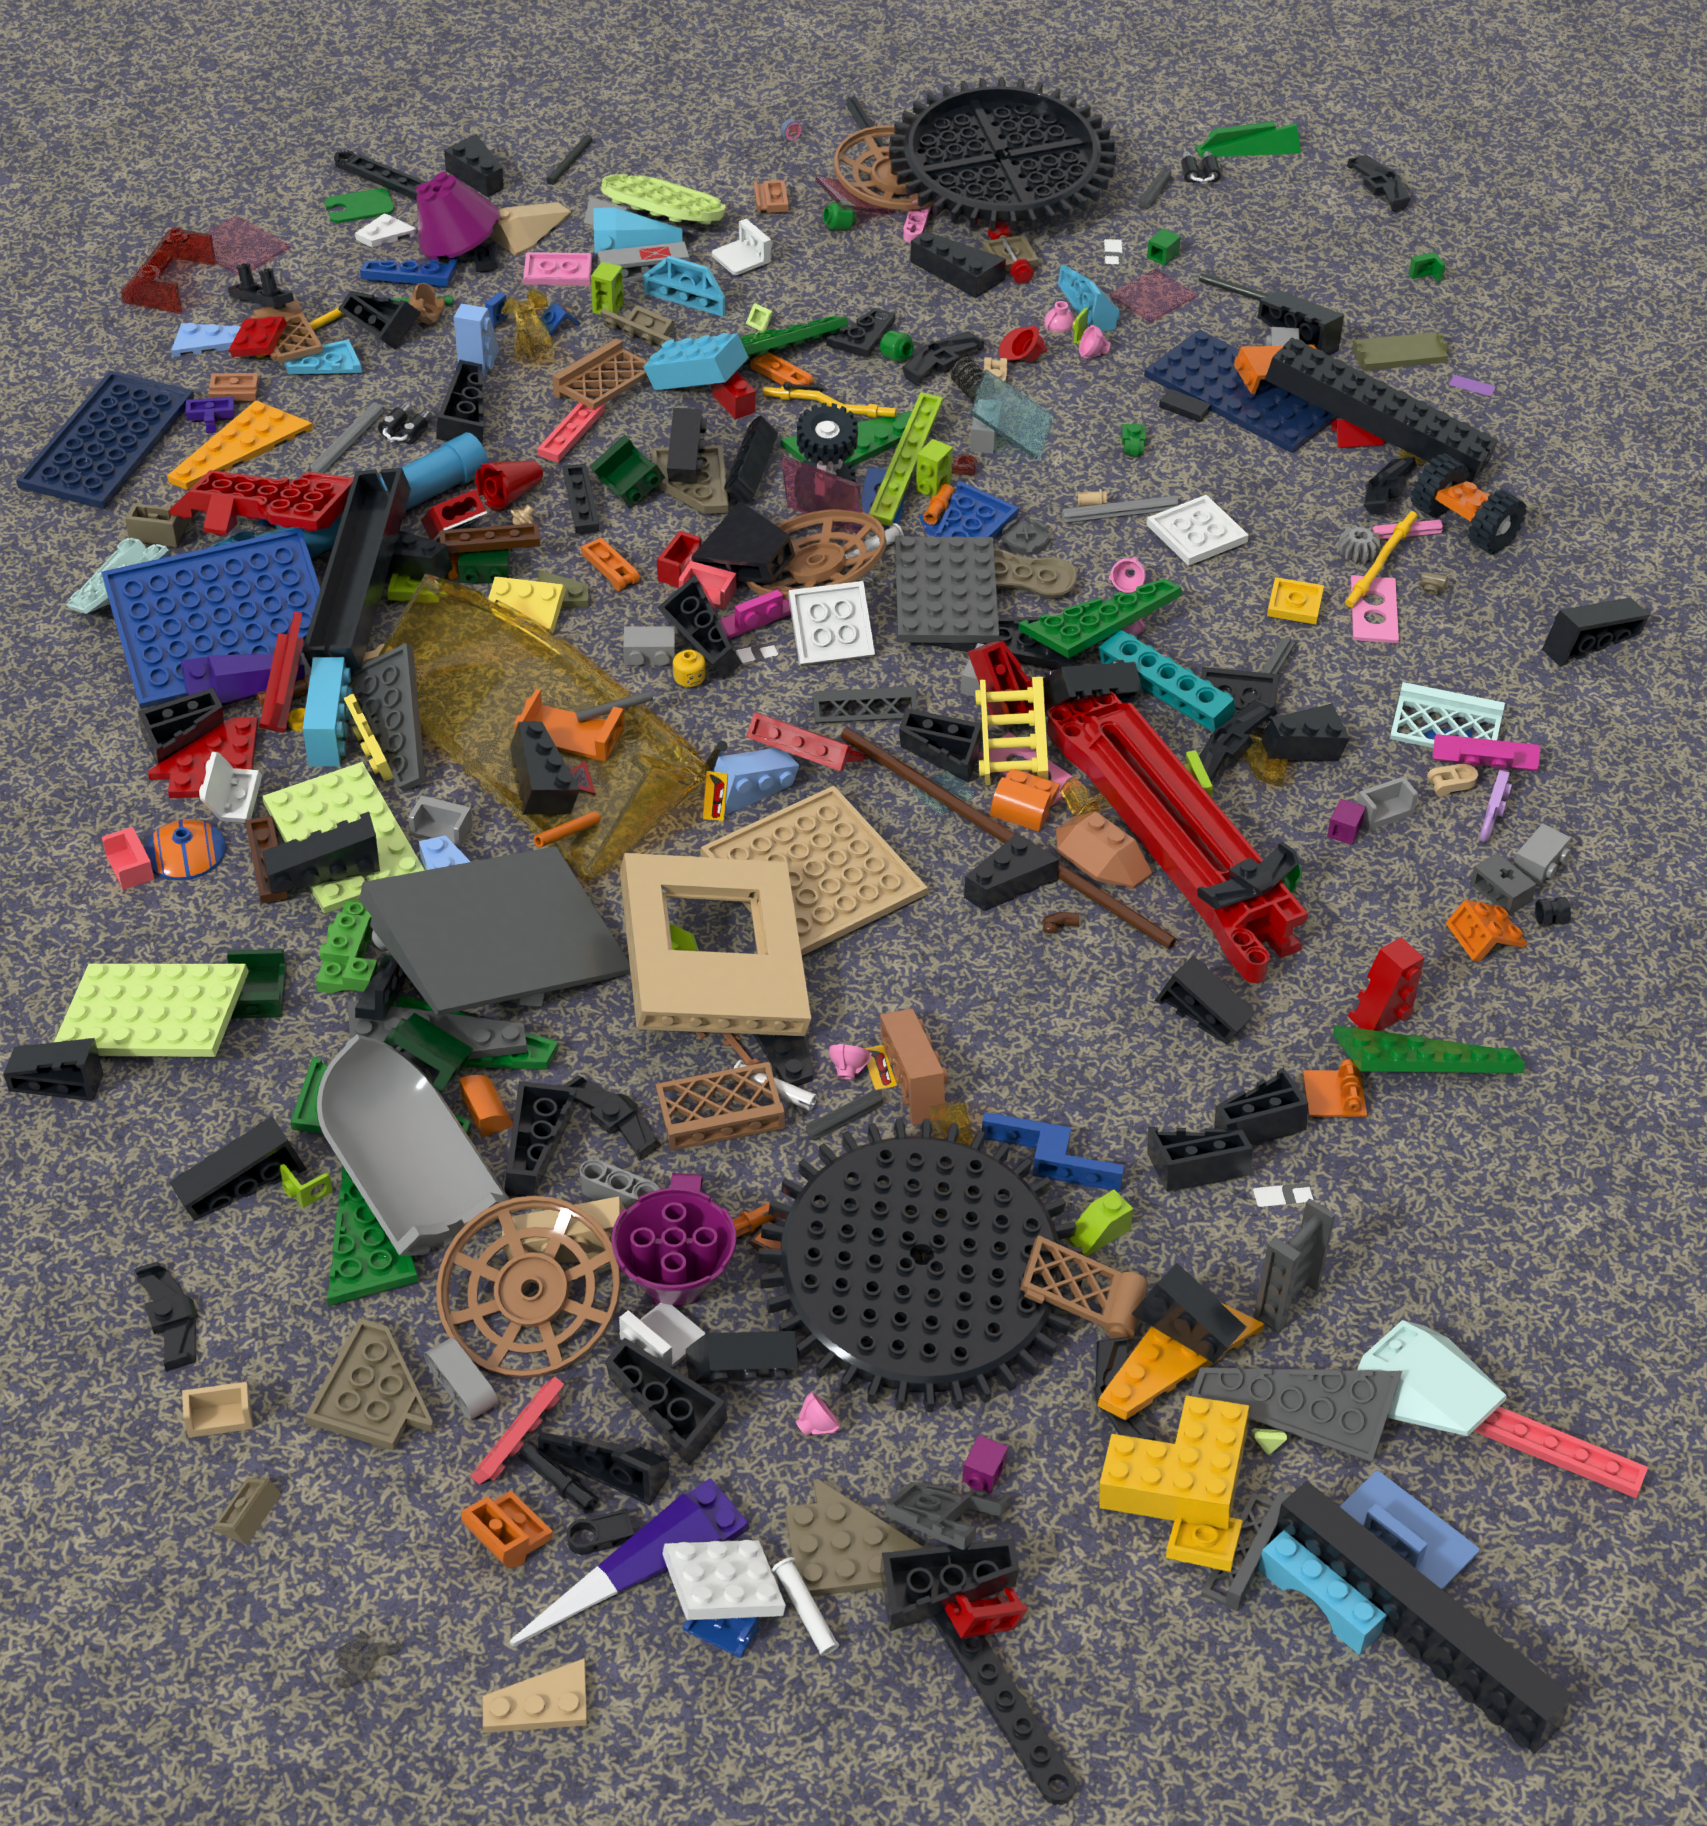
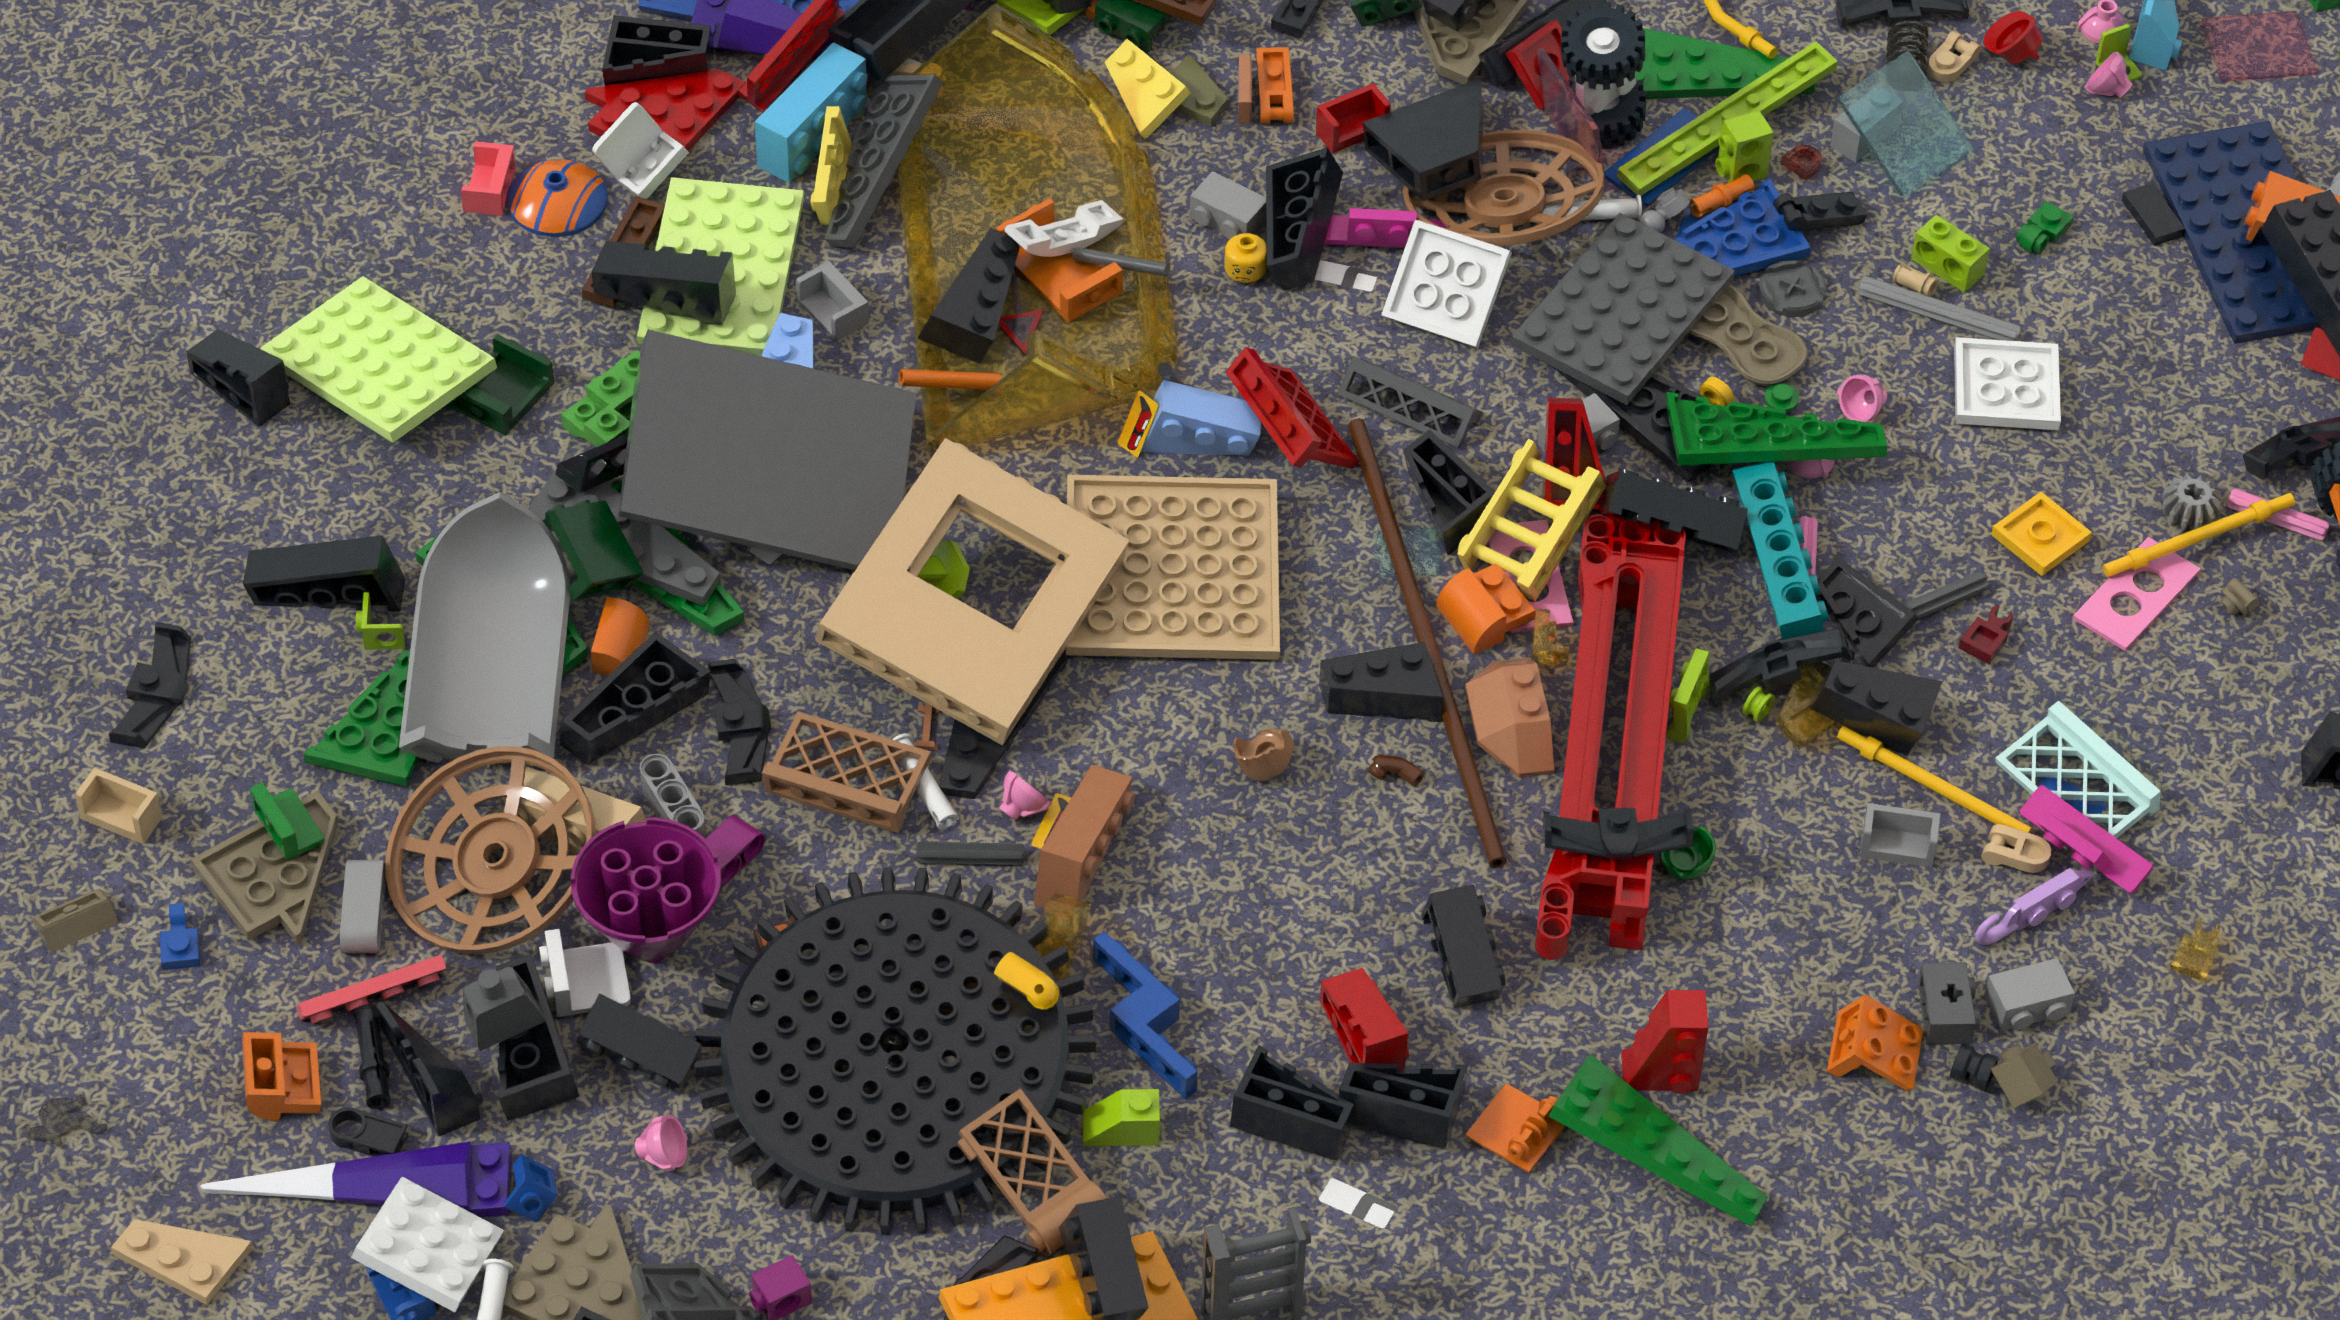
camera: 35 degrees right, 5 degrees up
(344, 1482) = (180, 945): none -> blue plate
(356, 1350) = (286, 821): none -> green panel
(565, 703) = (1059, 238): none -> white slope
(594, 573) = (1244, 89): none -> nougat tile
(646, 1380) = (499, 1007): none -> dark grey torso
(718, 582) = (1364, 167): coral panel -> none
(752, 1220) = (754, 908): orange axle -> none
(759, 1498) = (533, 1190): none -> blue bracket
(767, 475) = (1526, 63): none -> red plate
(914, 522) = (1669, 205): none -> light grey plate
(977, 952) = (1265, 754): none -> medium nougat hair
(986, 1163) = (1028, 980): none -> yellow piece
(1005, 484) = (1820, 210): none -> black plate
(1040, 608) = (1717, 391): none -> yellow tile
(1078, 596) = (1781, 397): none -> green plate
(1100, 473) = (1950, 253): none -> lime brick
(1193, 1079) = (1364, 1020): none -> red wedge
(1235, 772) = (1758, 704): none -> lime bush
(1320, 671) = (1986, 638): none -> dark red plate
(1320, 765) = (1873, 749): none -> yellow bar
(1346, 821) = (1832, 831): magenta brick -> none
(1588, 898) = (2024, 1073): none -> dark tan brick
(1601, 784) = (2197, 953): none -> clear yellow plate

